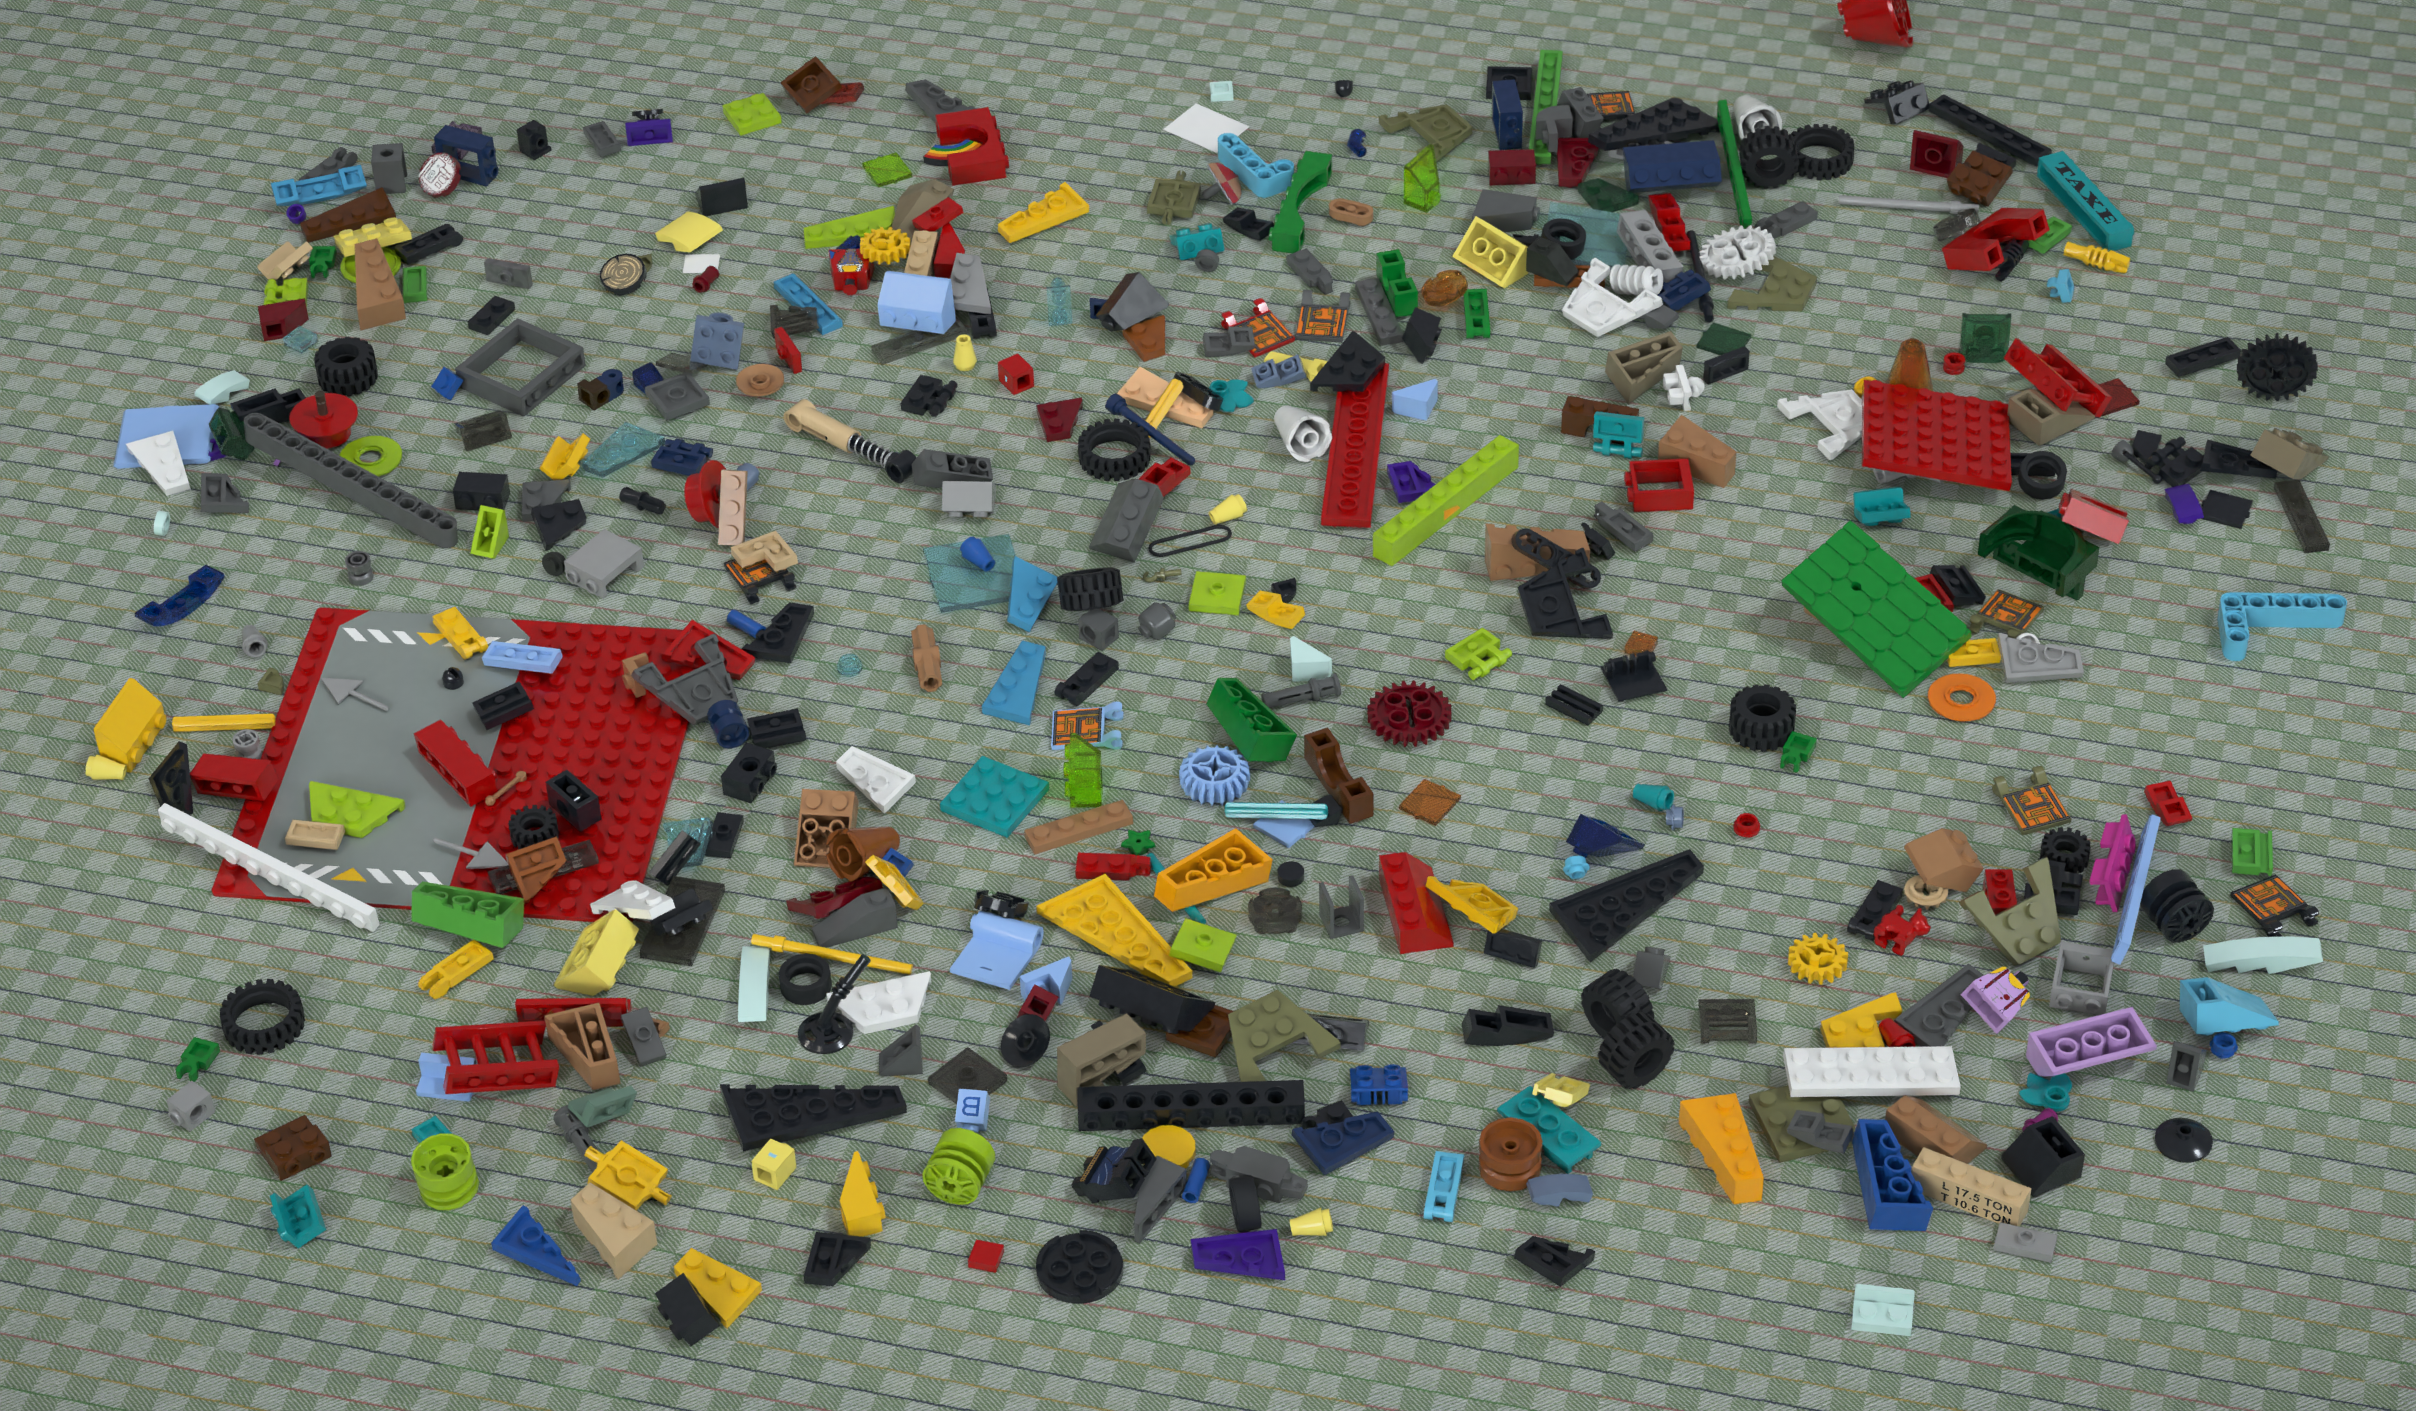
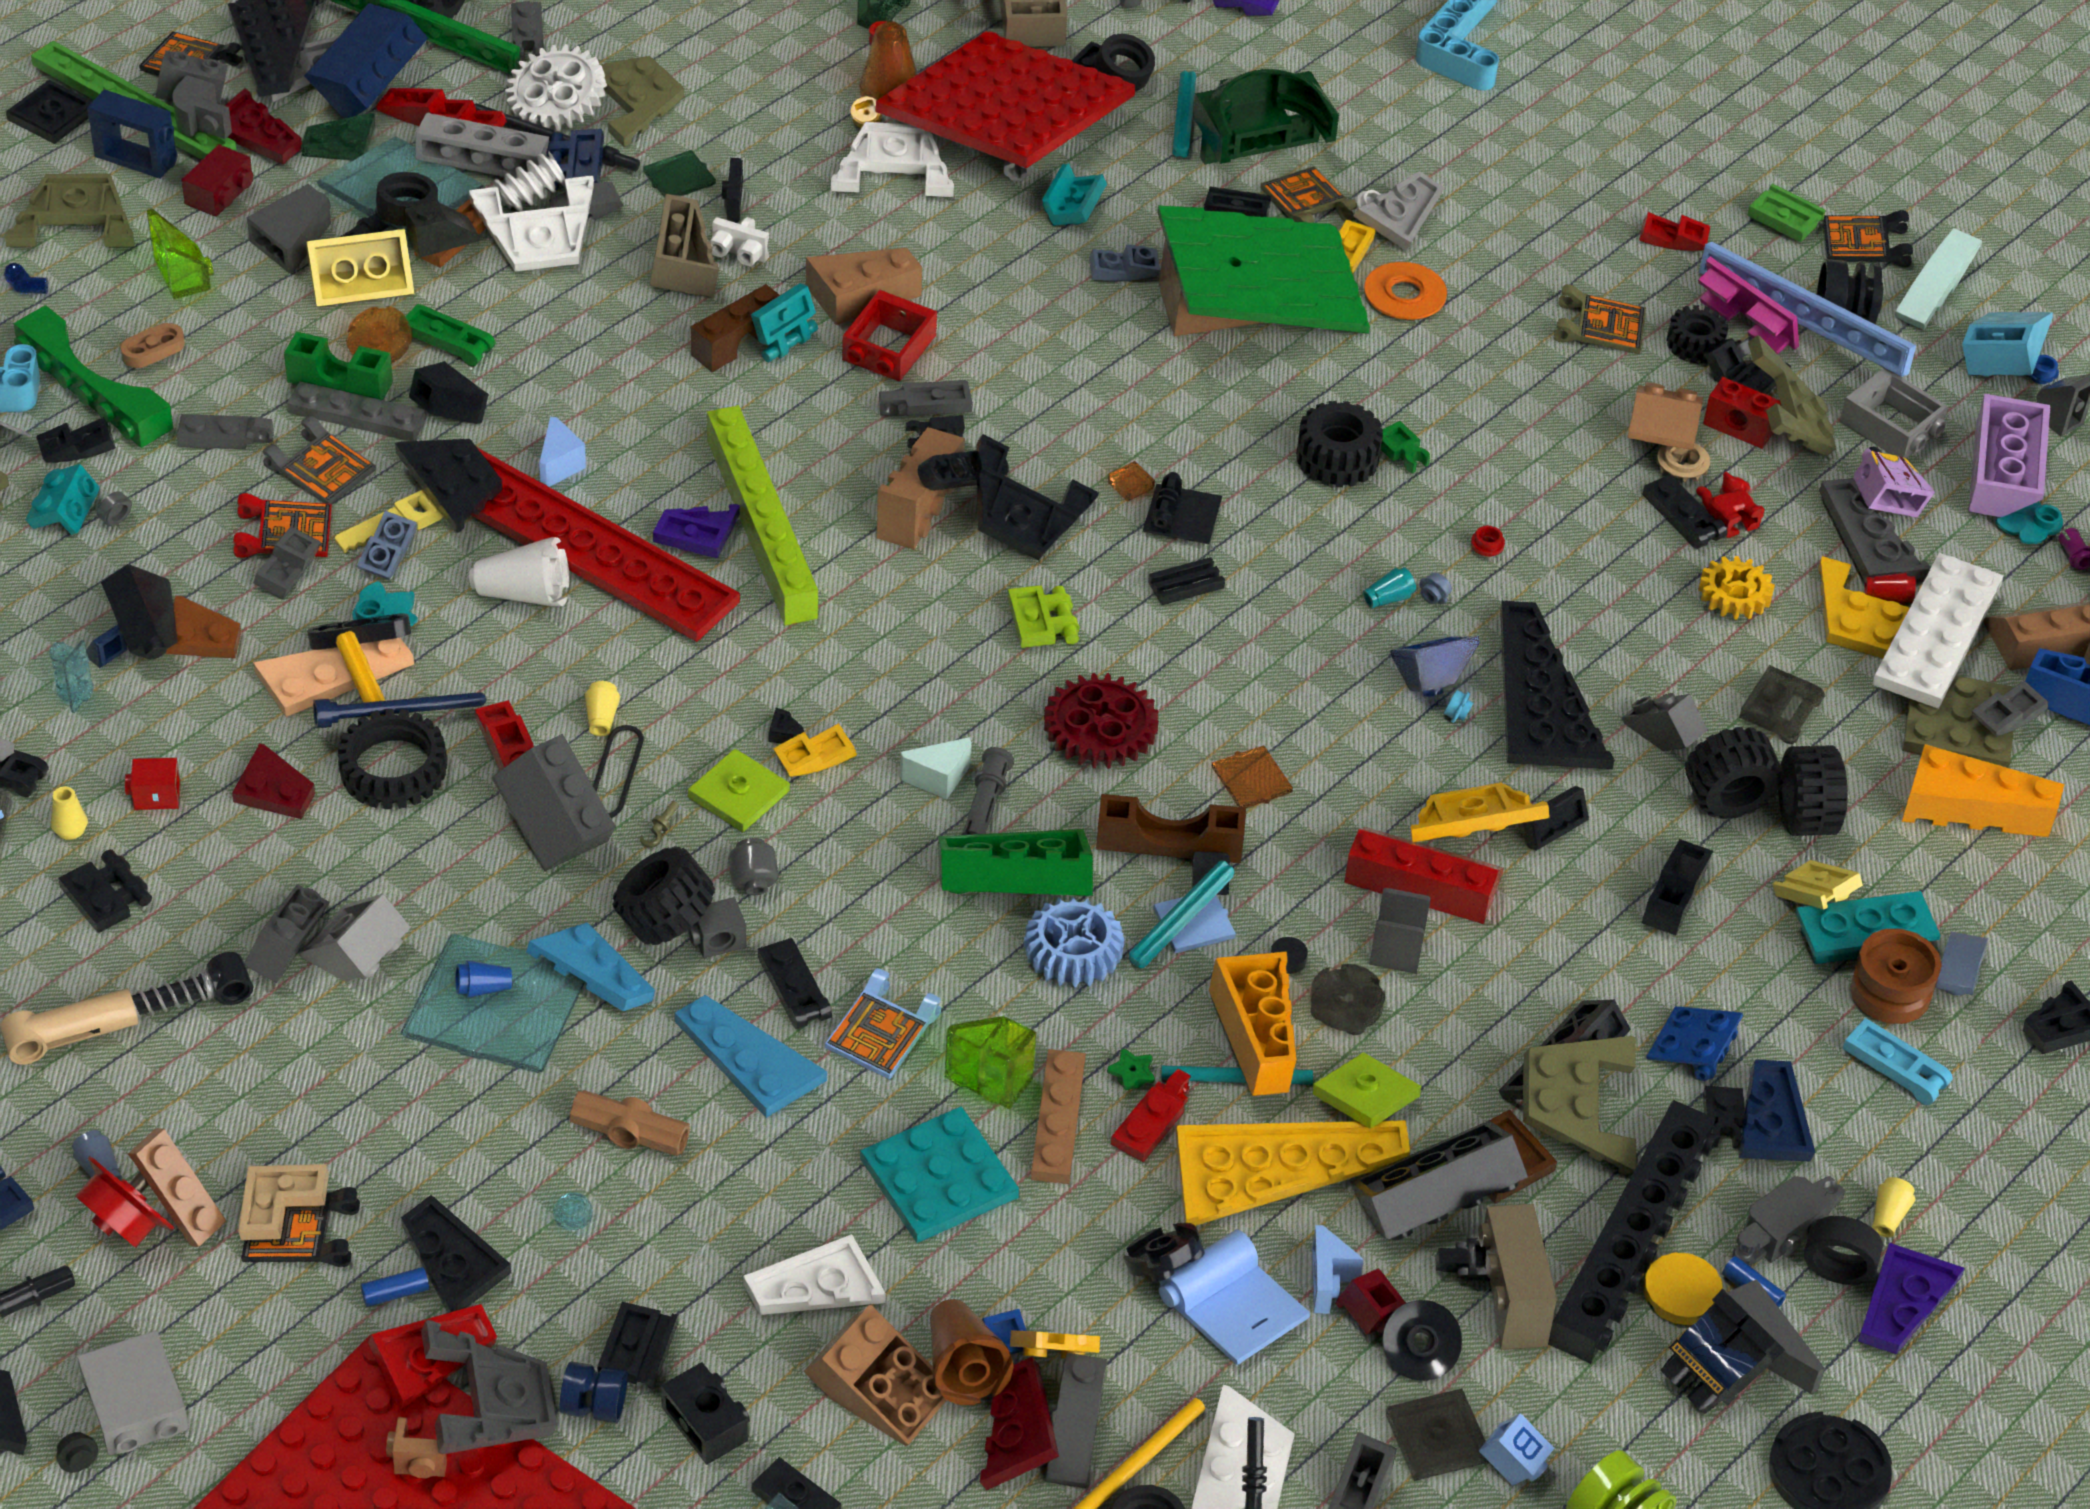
camera: 65 degrees left, 5 degrees up
(2093, 515) = (1253, 53): arch -> none

